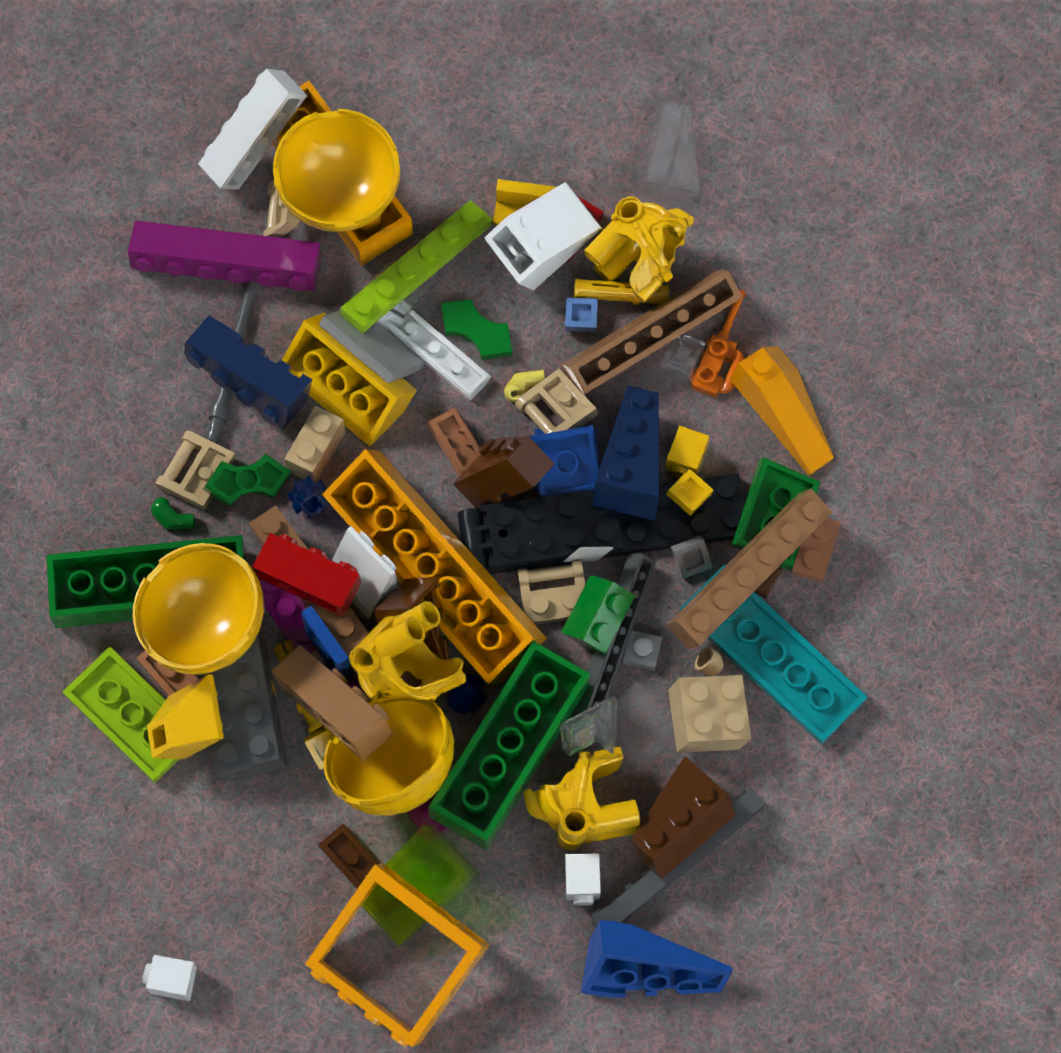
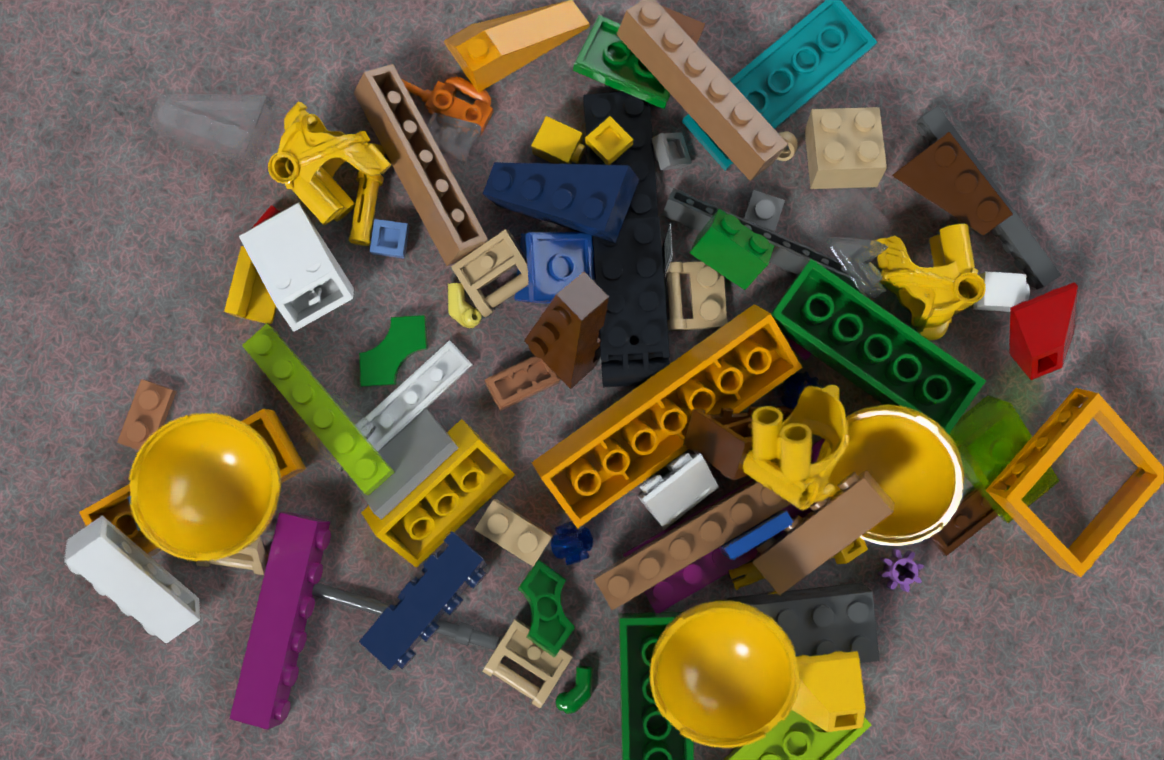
camera: 85 degrees left, 15 degrees up
(170, 977) = (1078, 716): white brick -> none
(303, 808) = (910, 566): none -> medium lavender gear
(307, 574) = (686, 550): red brick -> none
(404, 129) = (146, 413): none -> nougat plate
(545, 916) = (1043, 330): none -> red slope
(633, 959) = (1089, 244): blue wedge -> none

